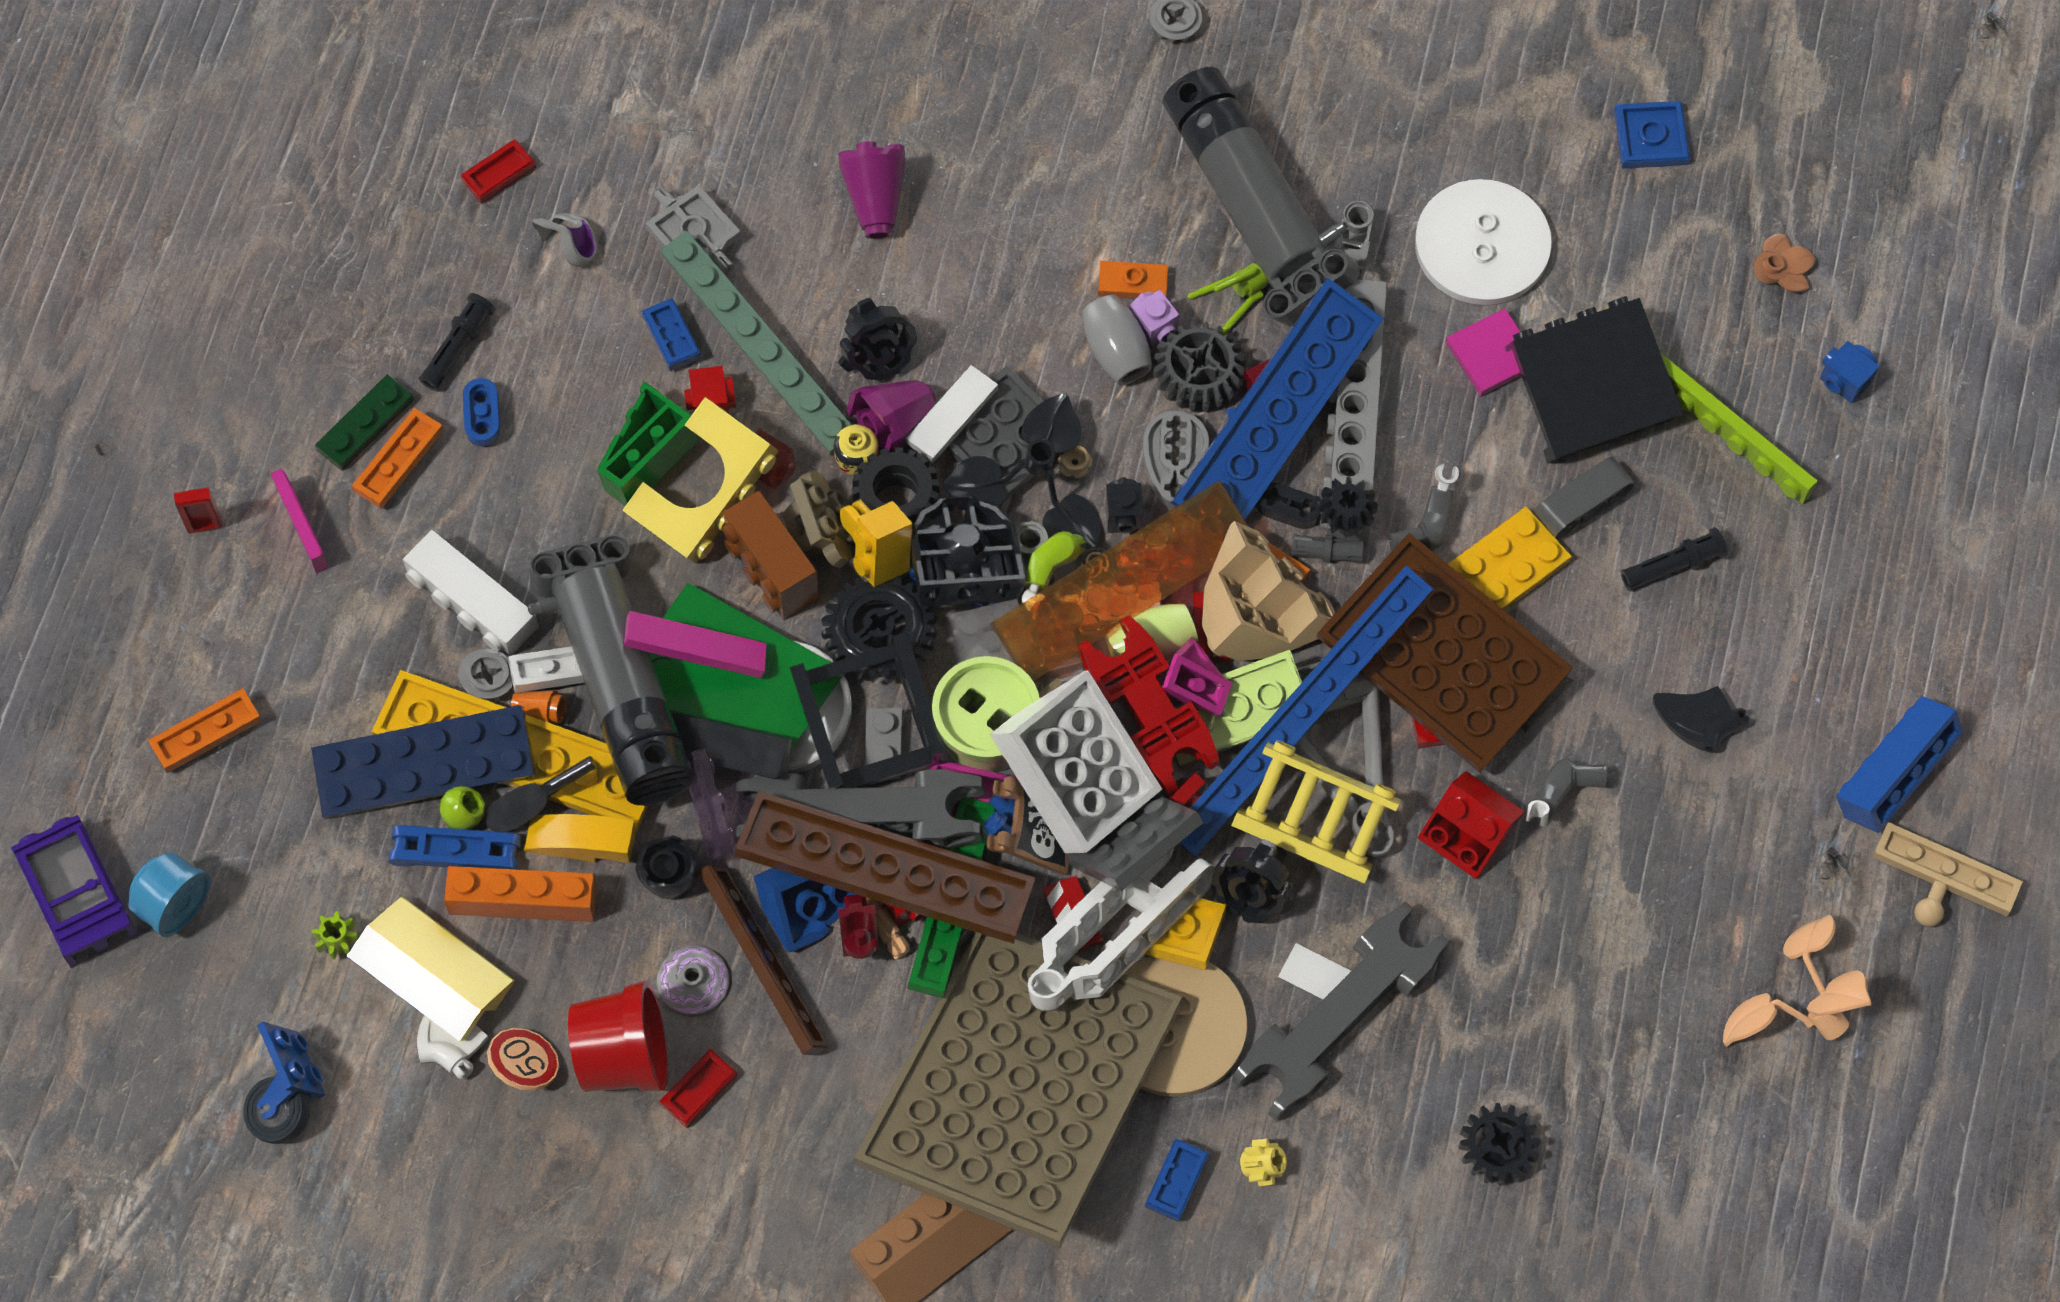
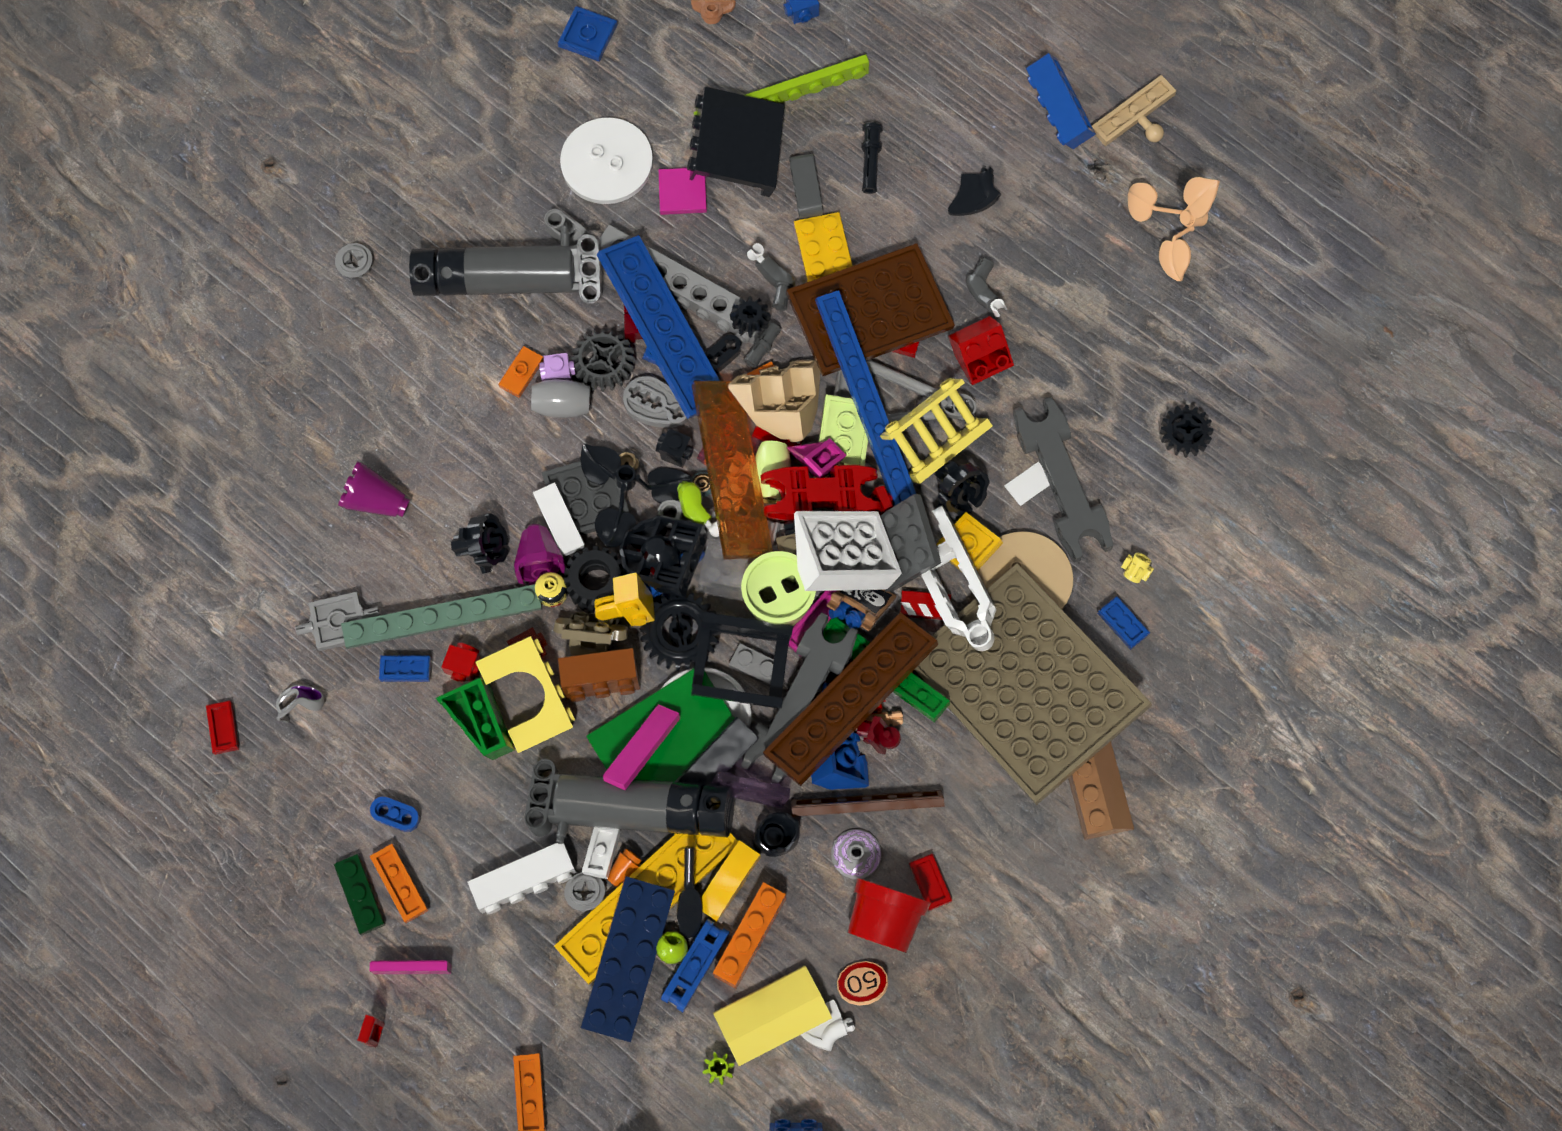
camera: 60 degrees left, 5 degrees up
(464, 328) = (328, 798): black pin -> none
(1245, 282) = (560, 307): lime plant -> none

